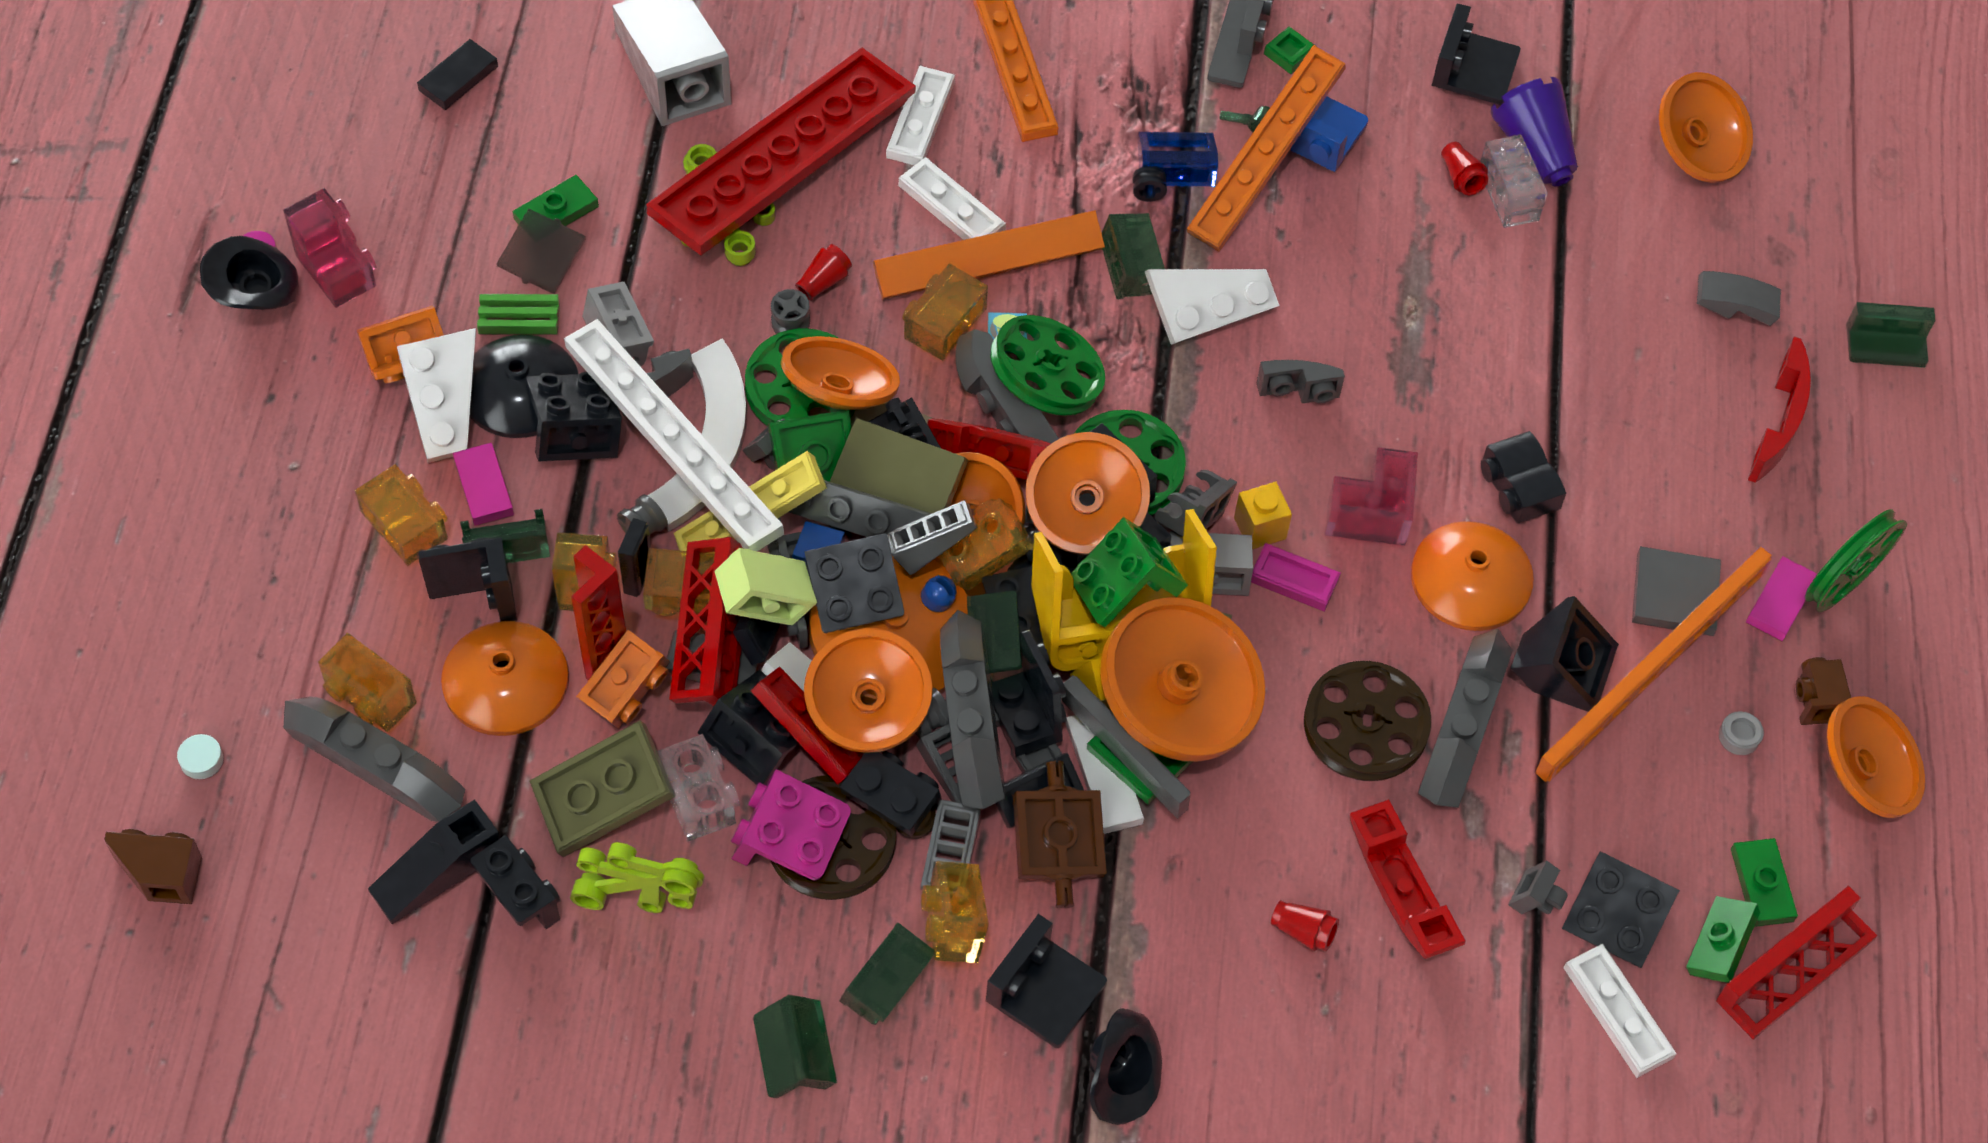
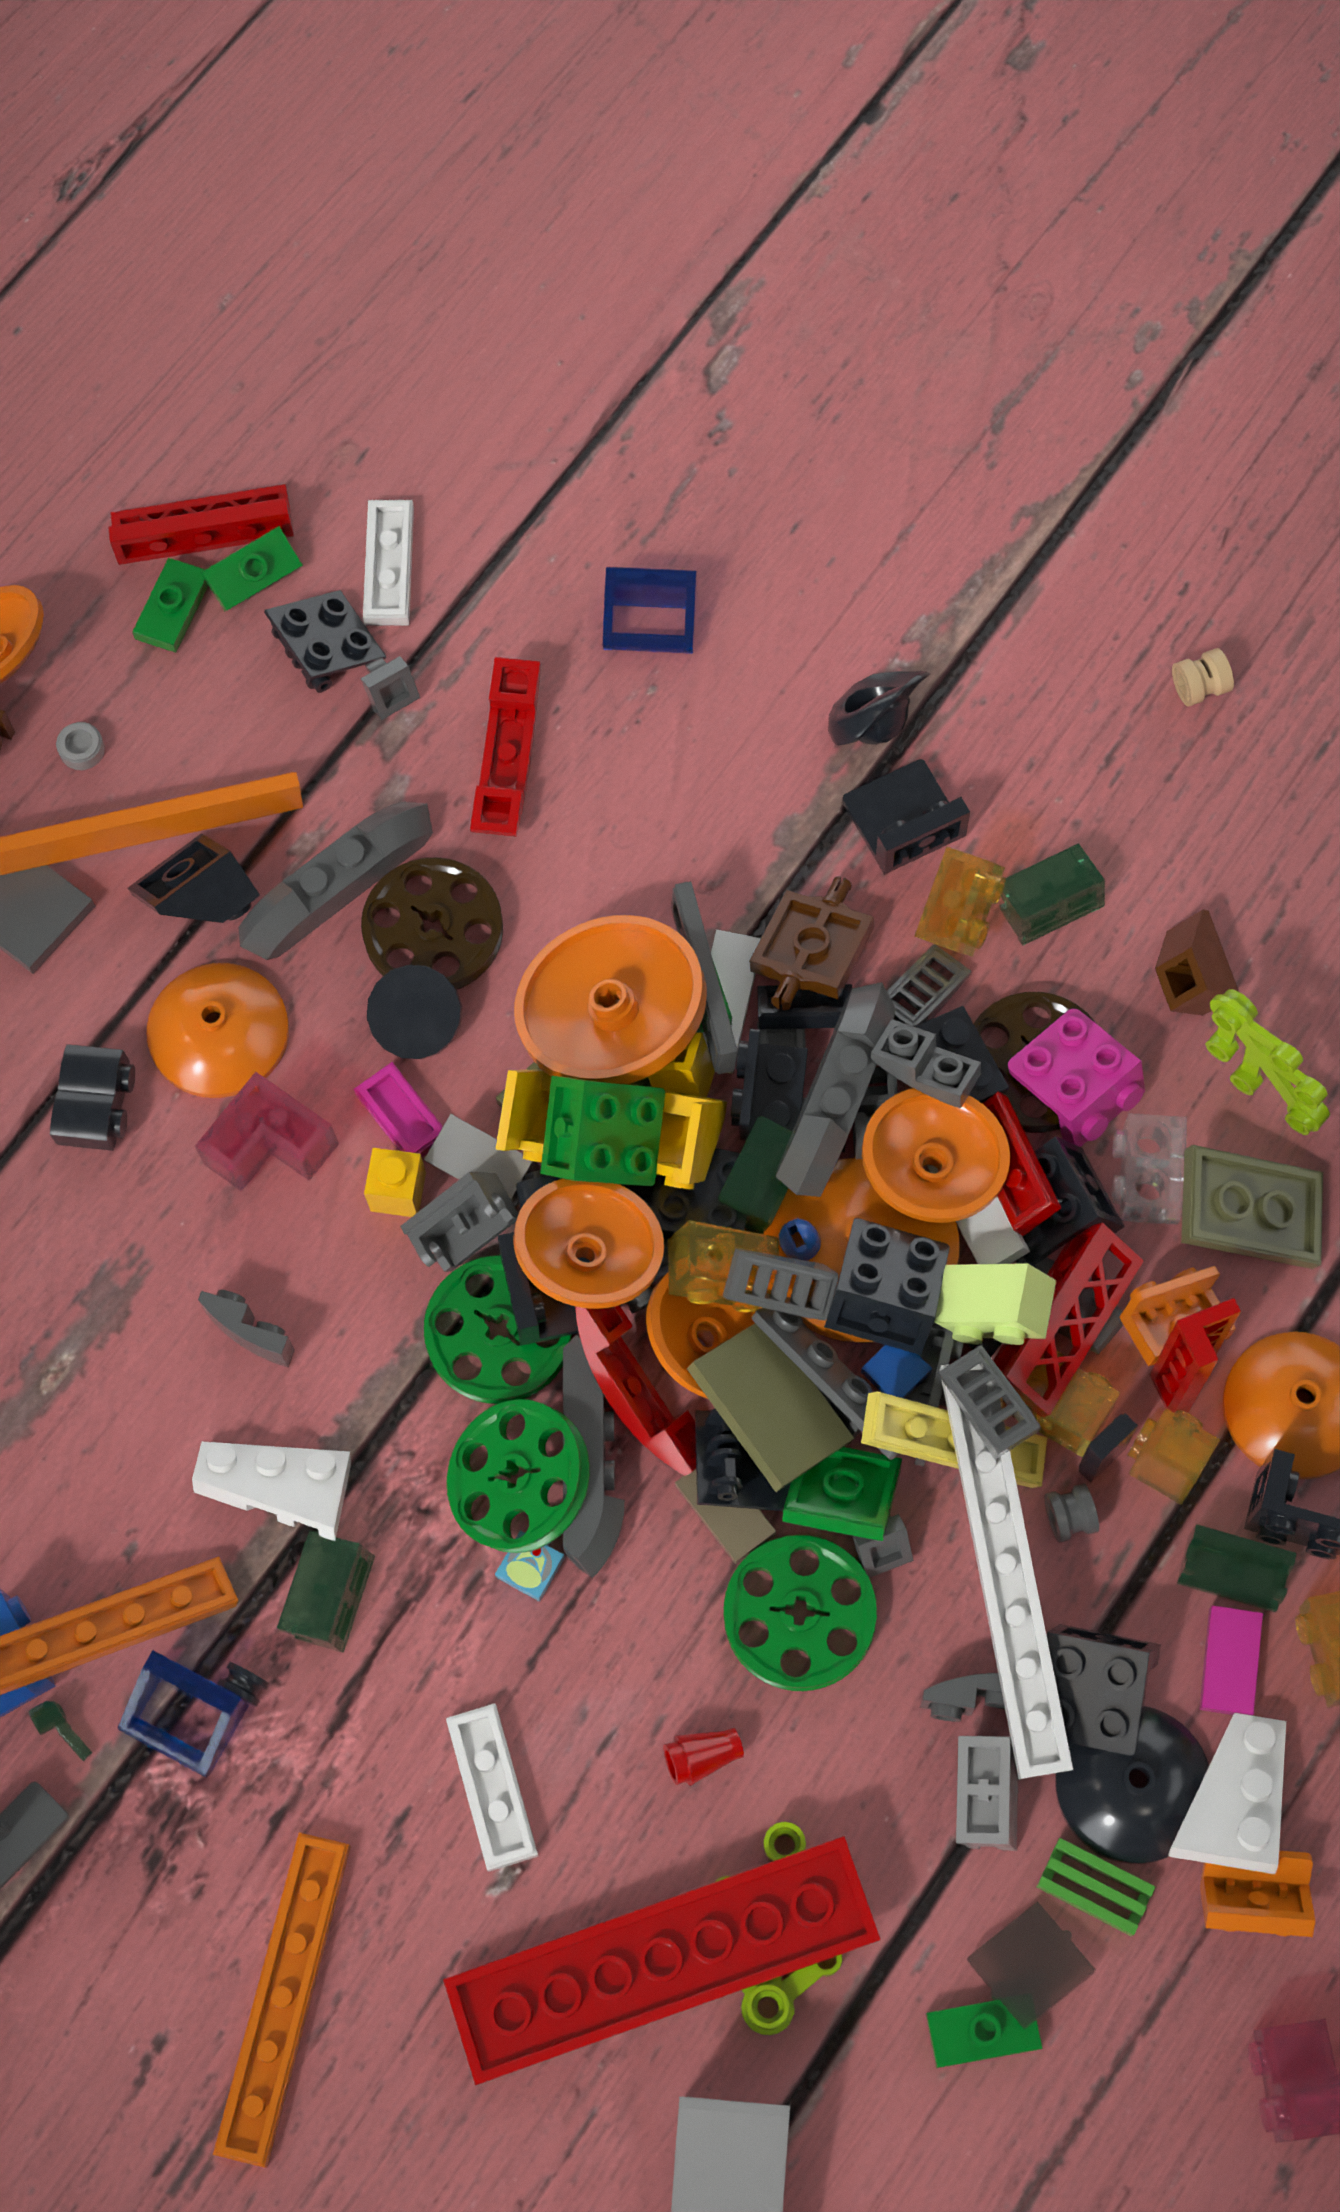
camera: 145 degrees left, 10 degrees up
(712, 491) = (1027, 1423): none -> dark grey slope
(722, 427) = (918, 1606): white tile -> none
(737, 960) = (1193, 965): none -> reddish brown slope
(785, 305) = (773, 1700): dark grey wheel -> none
(794, 1045) = (1170, 870): clear green panel -> none
(840, 373) = (741, 1567): orange dish -> none
(912, 751) = (915, 1060): none -> dark grey slope
(920, 116) = (454, 1945): white tile -> none
(945, 311) = (593, 1613): clear yellow brick -> none
(991, 253) = (492, 1680): orange tile -> none
(1306, 924) = (624, 757): red cone -> none
(1333, 642) = (414, 1012): none -> black tile
(1377, 1086) = (649, 589): none -> clear blue tile

